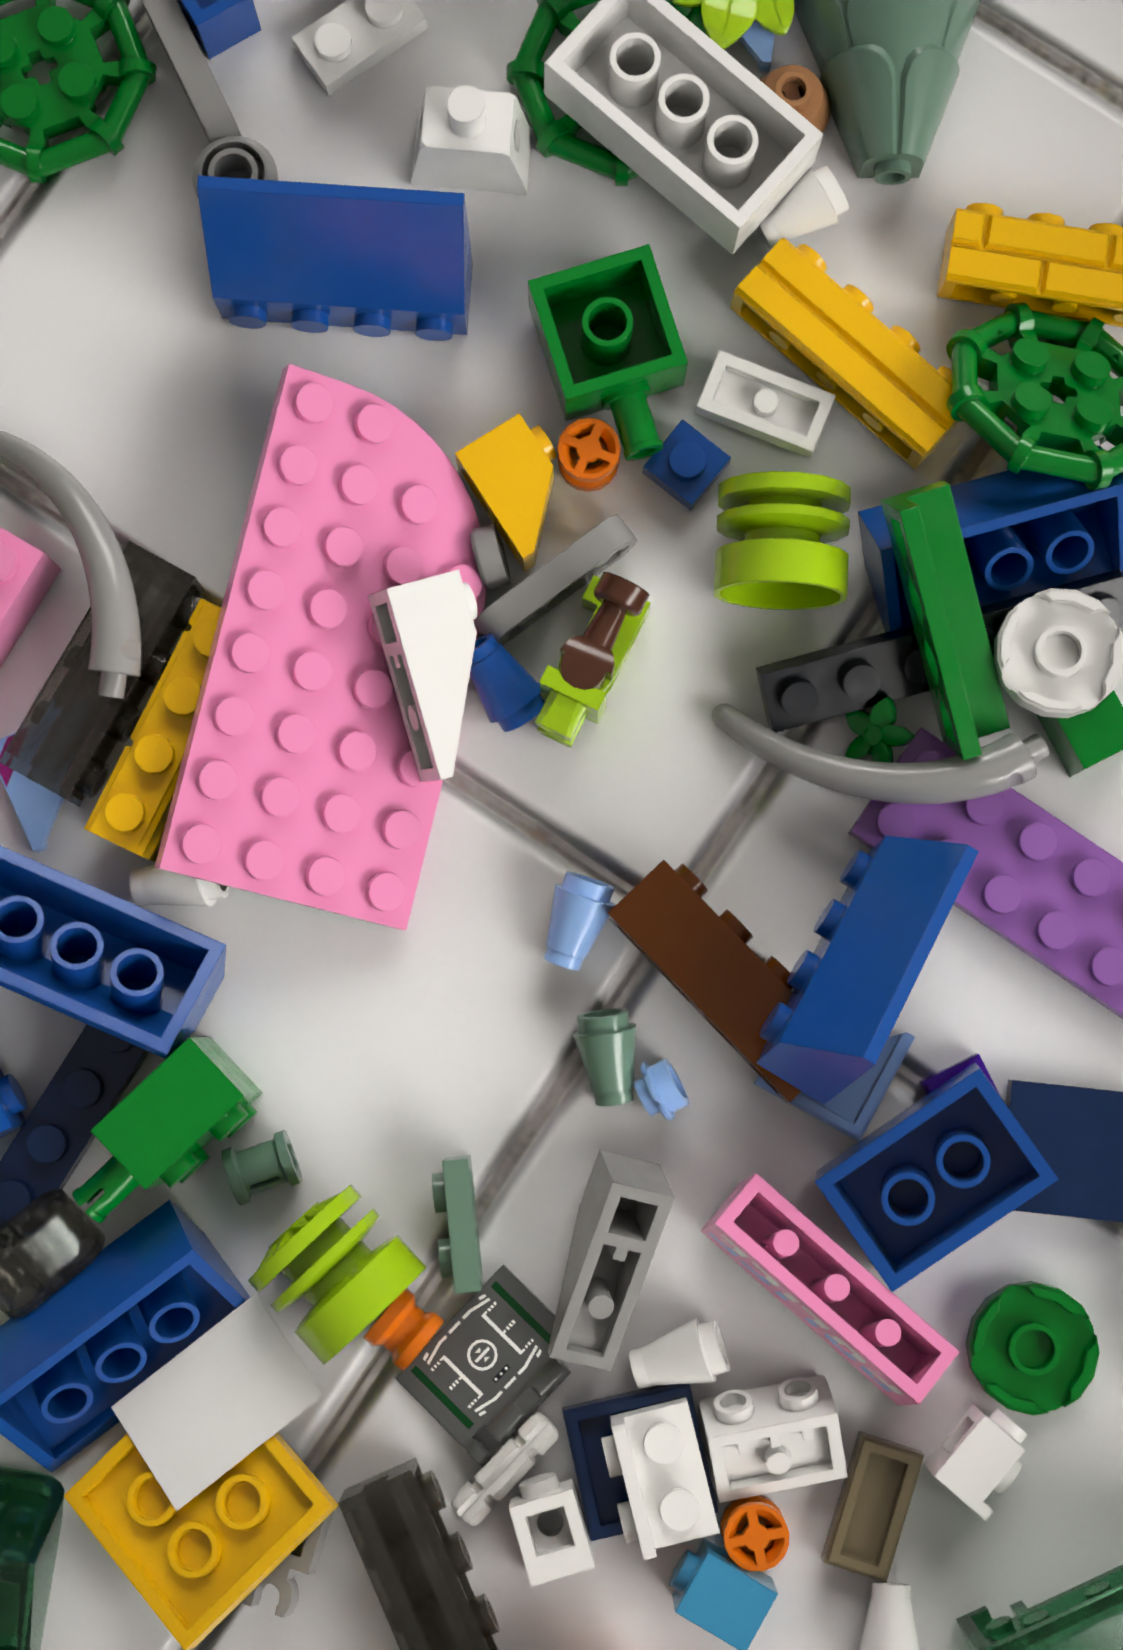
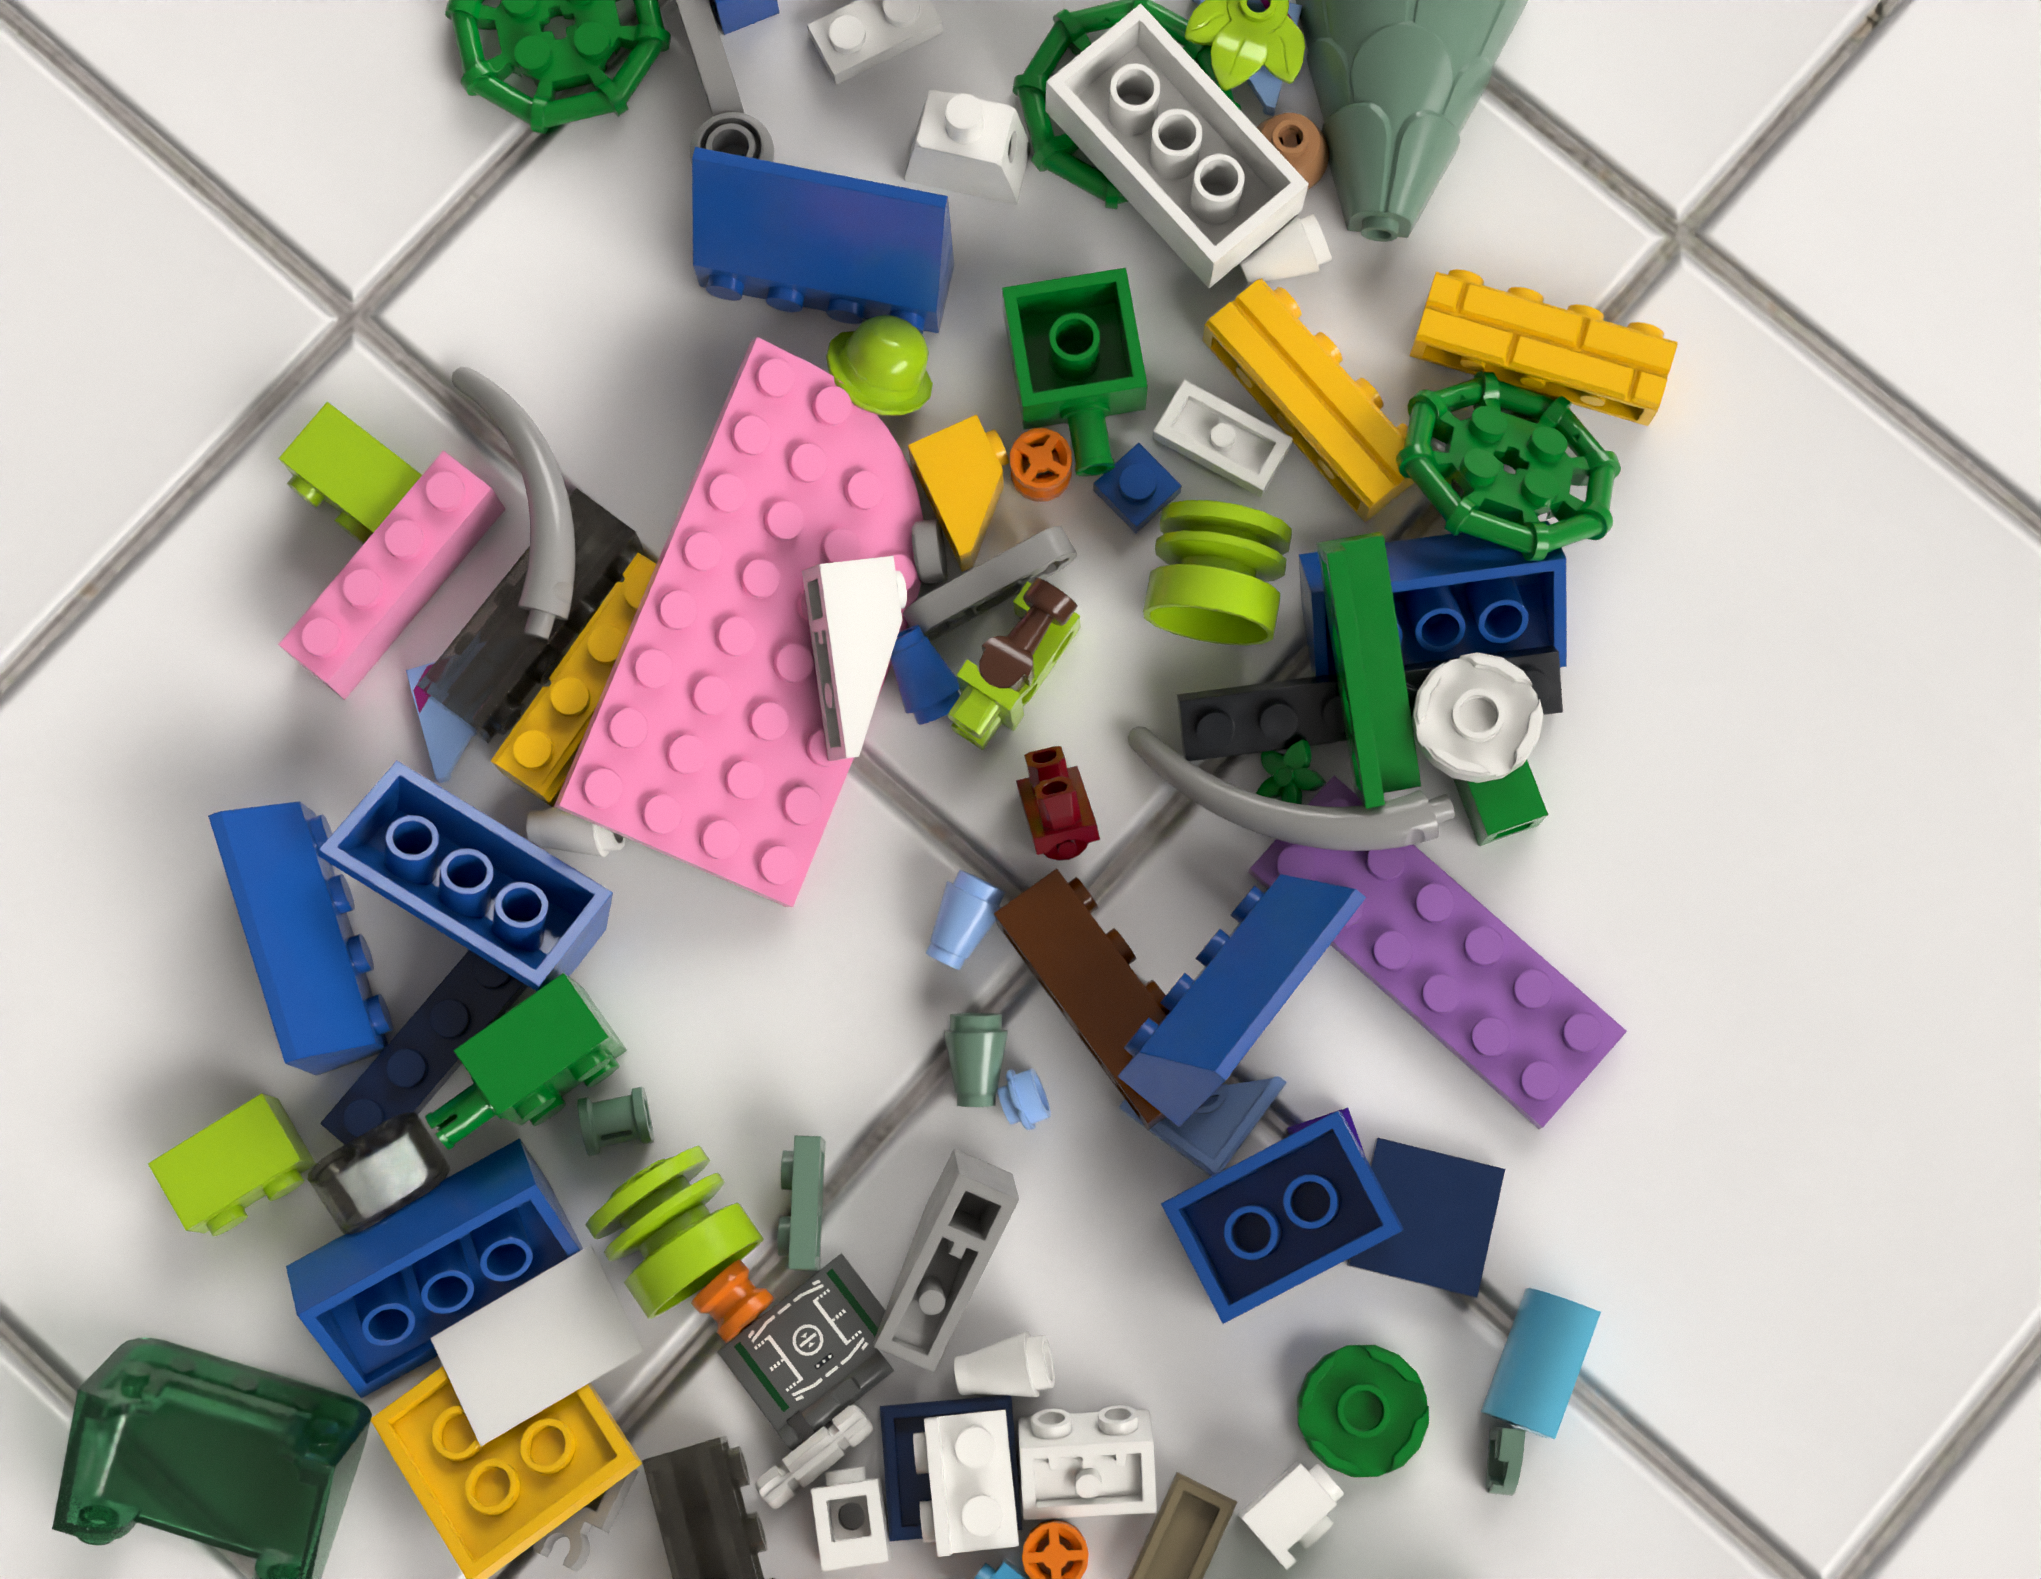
camera: 10 degrees right, 5 degrees down
(417, 376) = (882, 366): none -> lime hat
(653, 795) = (1056, 805): none -> dark red hips
(830, 1291) = (1162, 1318): bright pink brick -> none

